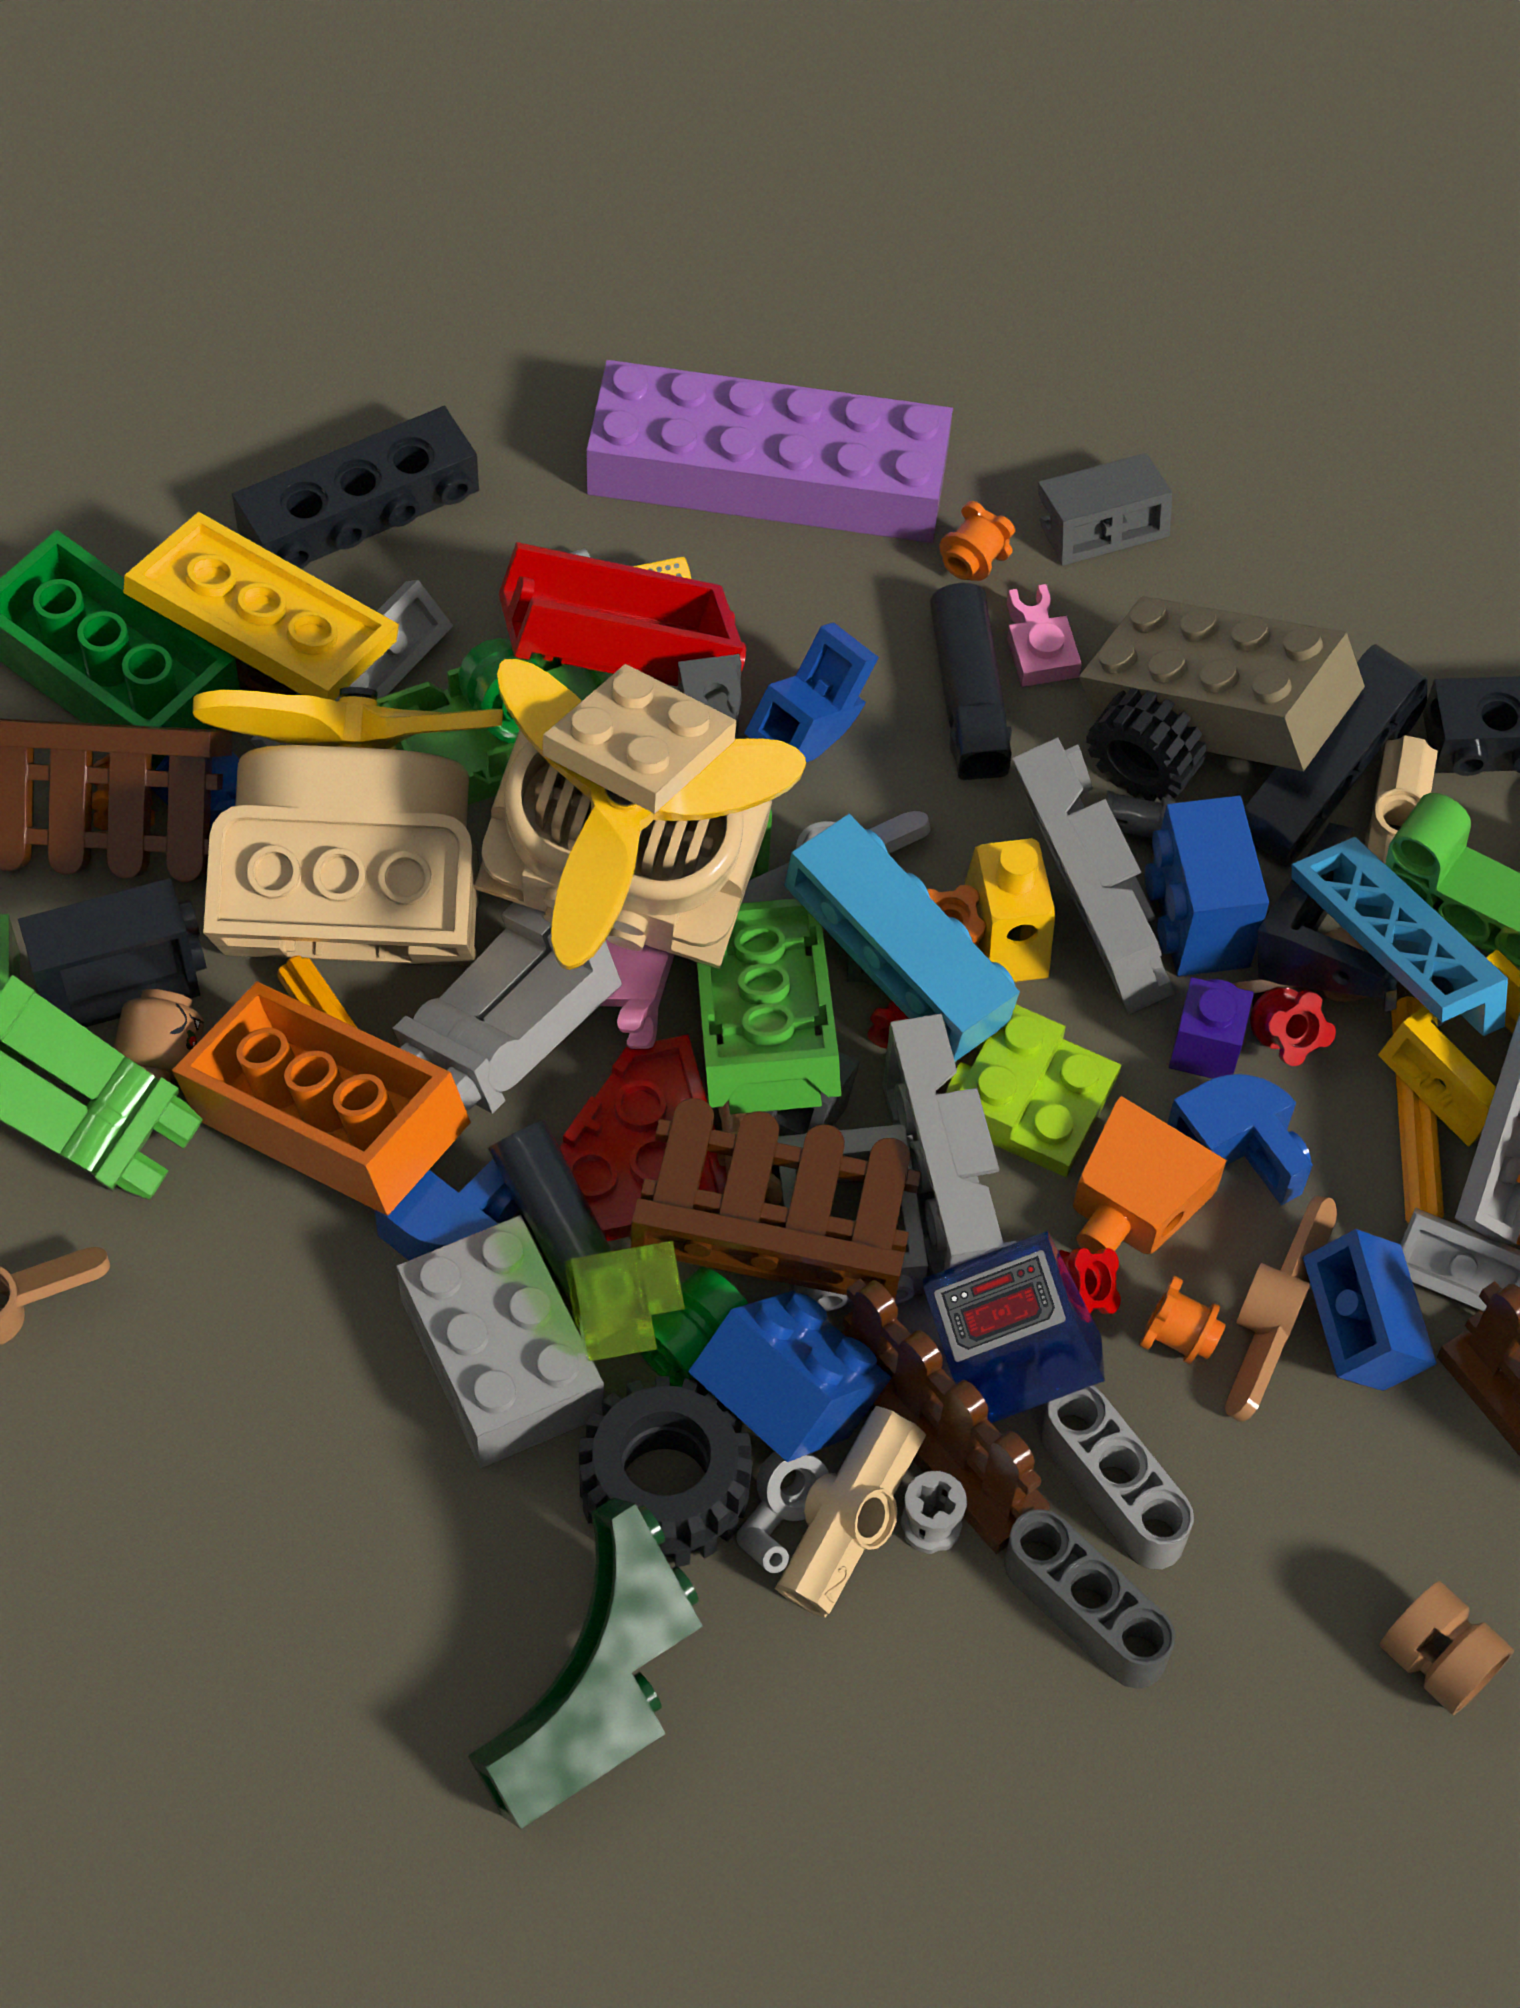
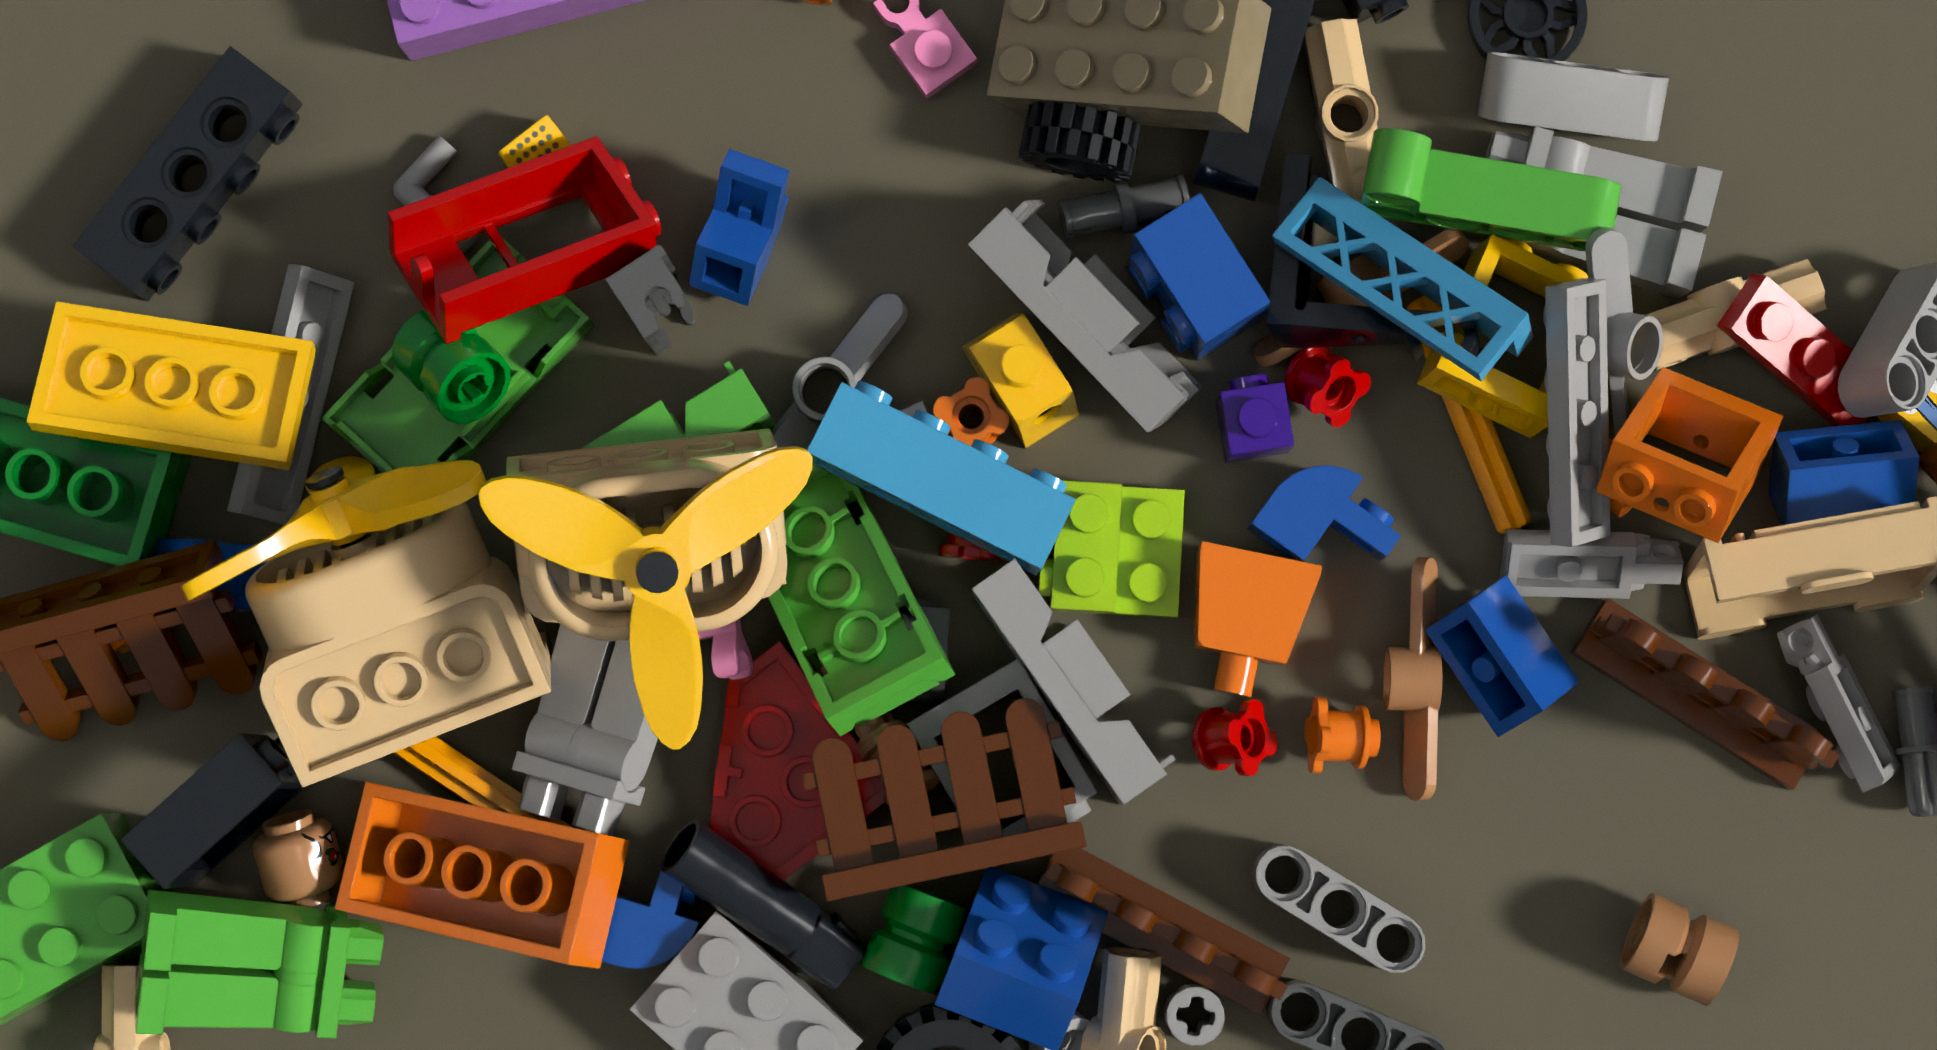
camera: 15 degrees left, 25 degrees up
(619, 1293) = (845, 966): clear neon green brick -> none
(639, 738) = (649, 520): tan plate -> none
(971, 682) = (879, 126): black piece -> none
(1016, 1327) = (1204, 835): clear blue slope -> none

